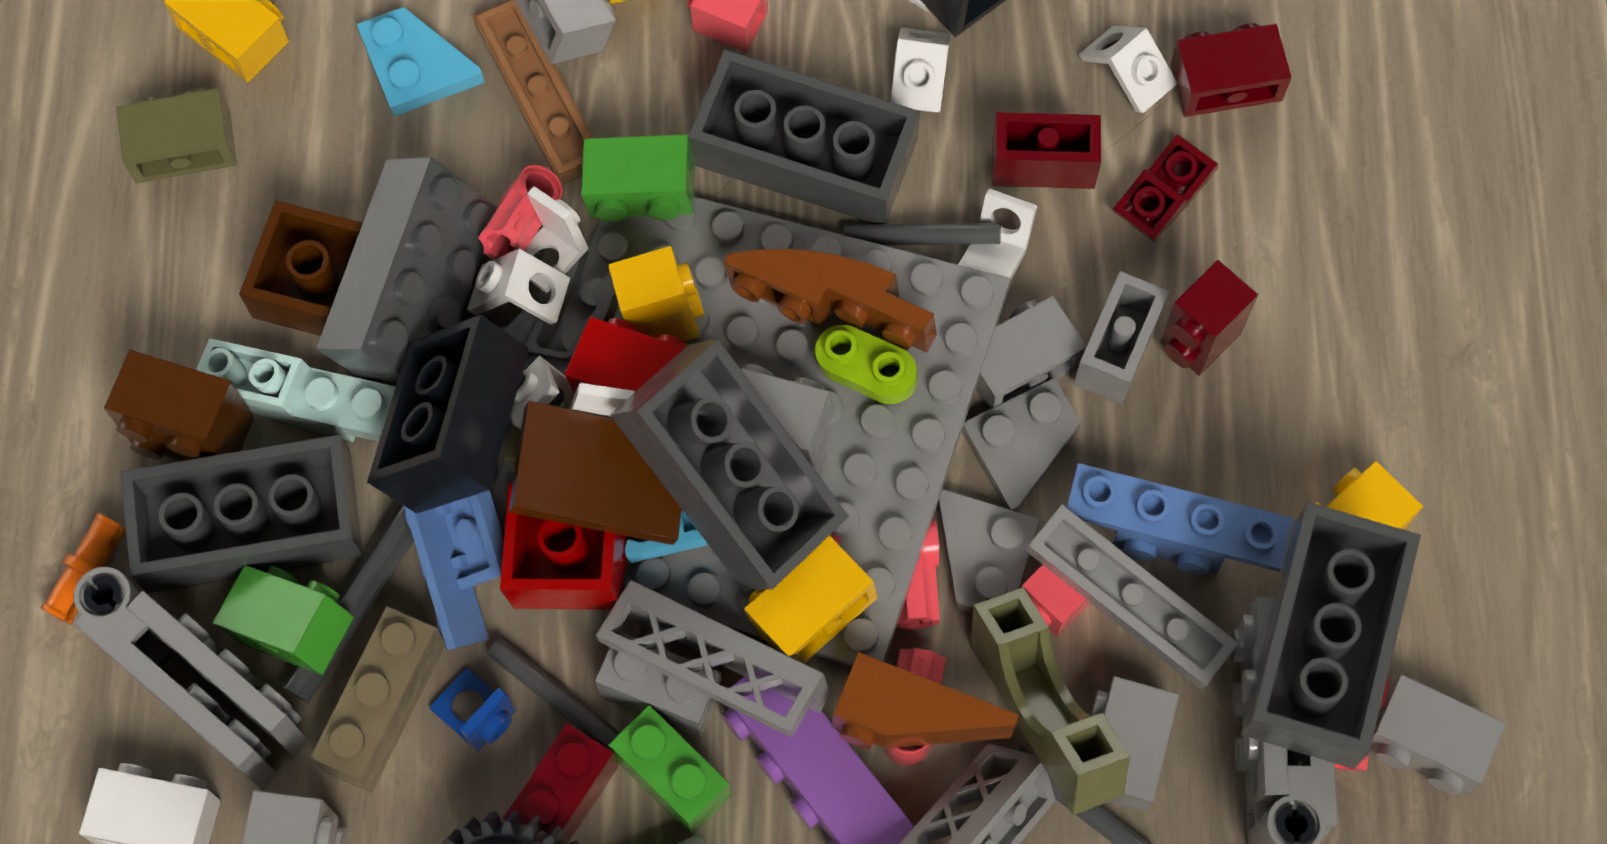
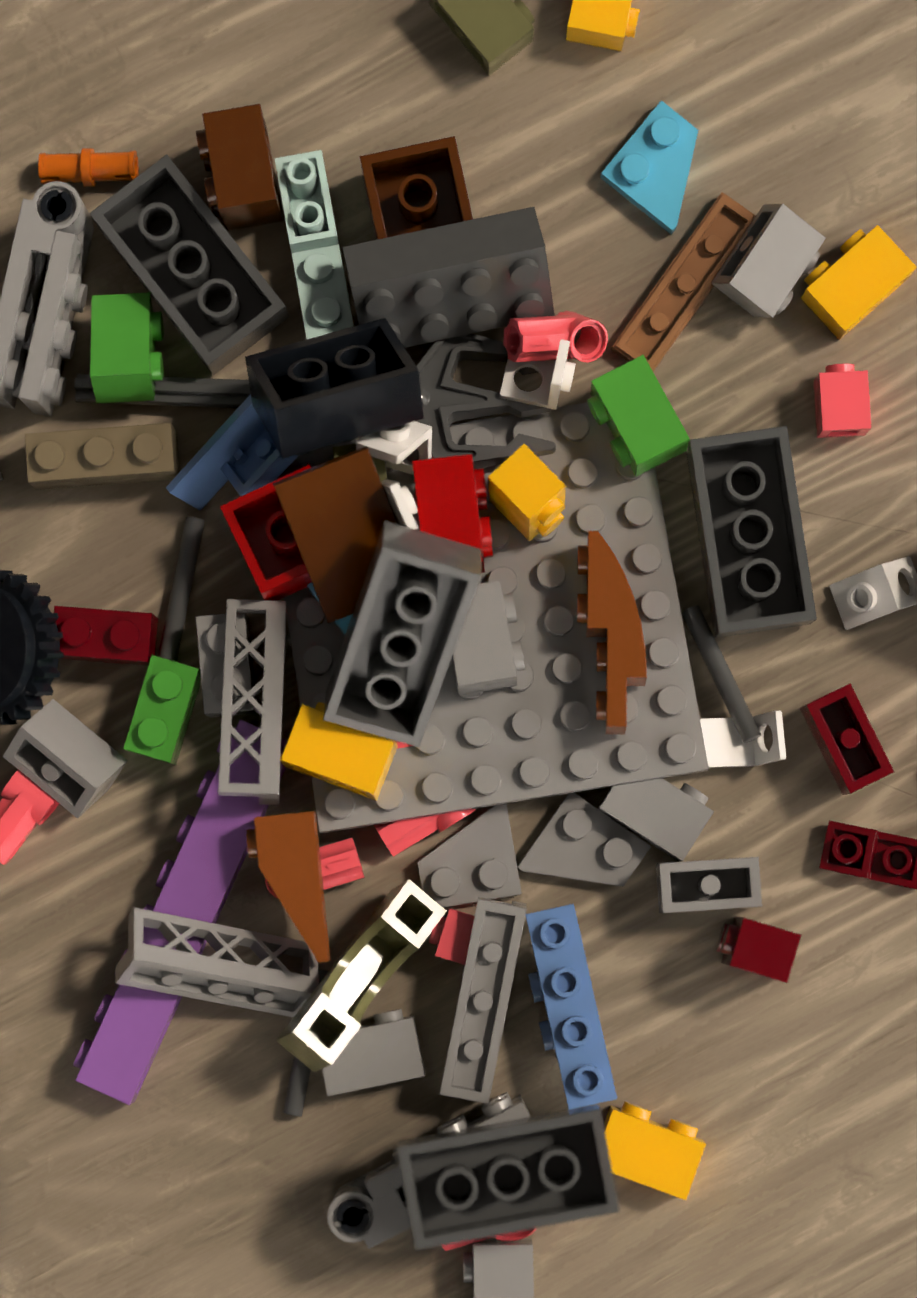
camera: 65 degrees right, 15 degrees up
(487, 722) = (134, 550): blue bracket -> none
(508, 281) = (483, 361): white bracket -> none
(863, 363) = (567, 689): lime plate -> none

